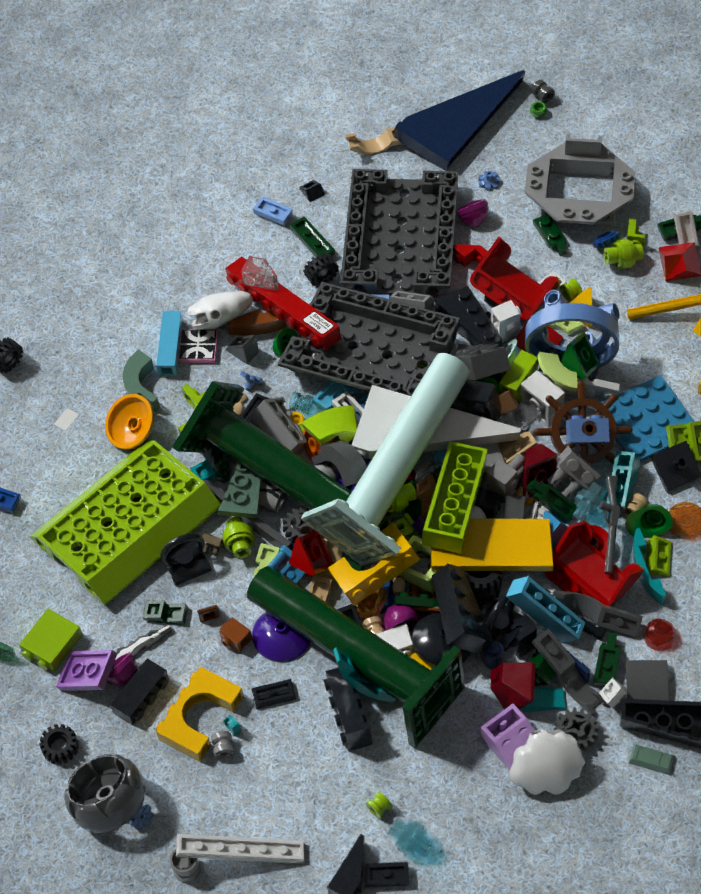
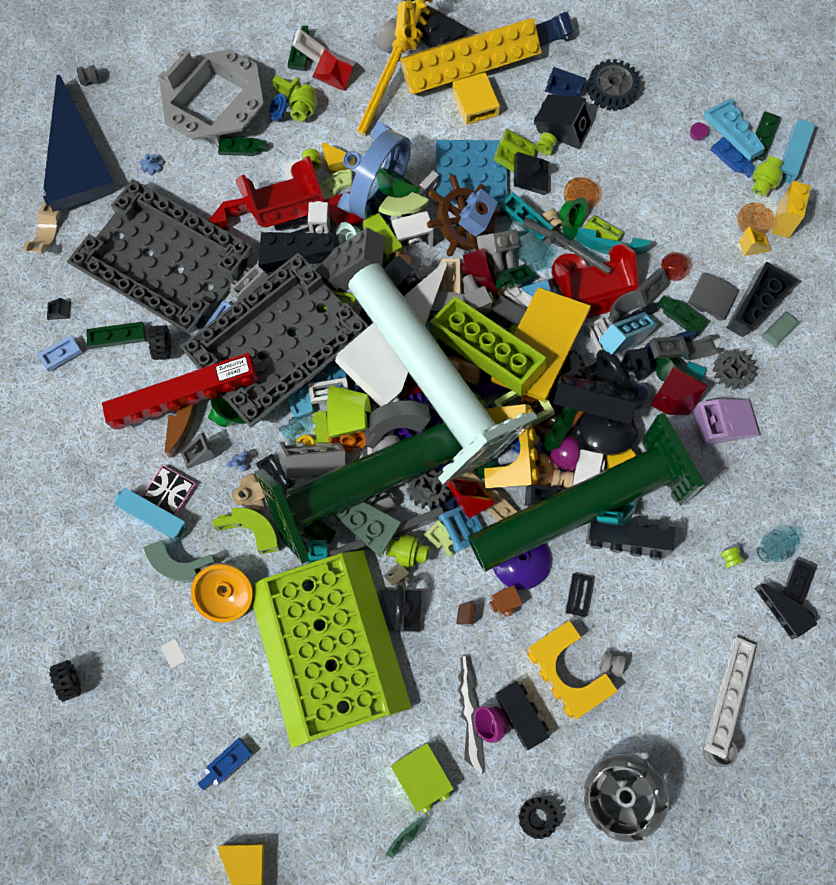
camera: 70 degrees left, 15 degrees up
(86, 670) = (479, 757): medium lavender plate -> none
(161, 612) = (445, 654): slope -> none
(219, 308) = (146, 451): white piece -> none
(232, 725) = (594, 646): teal tile -> none
(259, 273) = (141, 393): clear slope -> none
(474, 212) = (180, 189): magenta hat -> none
(538, 109) = (101, 85): bright green plate -> none
(547, 762) = (762, 403): white piece -> none
(613, 692) = (721, 324): white bracket -> none

